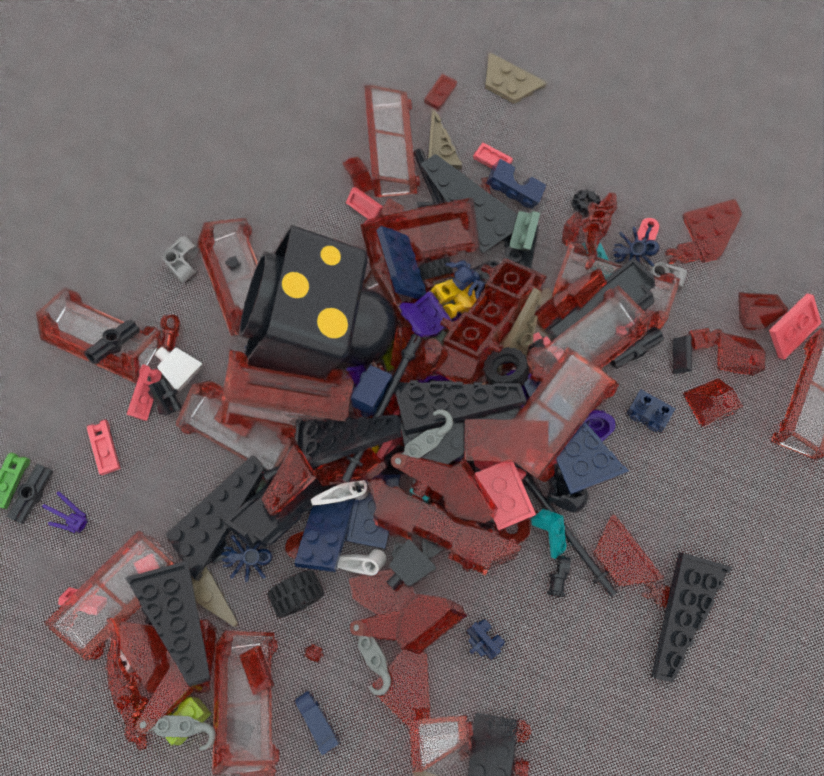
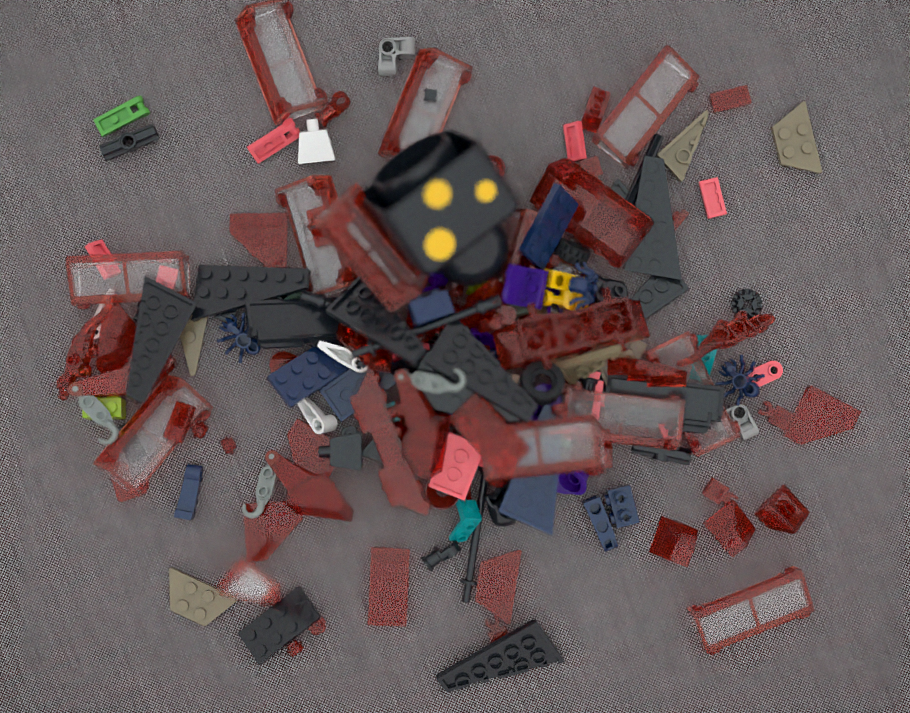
camera: 40 degrees right, 15 degrees up
(75, 522) = (143, 194): dark purple plant -> none
(103, 448) = (209, 155): coral plate -> none
(111, 341) = (294, 79): black piece -> none
(165, 397) = (285, 161): black hips -> none
(196, 468) = (263, 236): none -> clear red plate
(280, 663) = (199, 430): none -> clear red plate
(288, 482) = (314, 316): clear red wing -> none
(295, 593) = (250, 396): black tyre -> none
(481, 641) = (345, 546): dark blue hips -> none
(502, 180) = (696, 226): dark blue arch -> none
(524, 230) = (669, 285): sand green bracket -> none
(545, 642) = (388, 586): none -> clear red plate
(571, 229) = (708, 318): clear red plate -> none
(648, 437) = (600, 522): none -> dark blue leg
(682, 354) = (690, 488): black tile -> none
(795, 326) = (791, 549): coral plate -> none

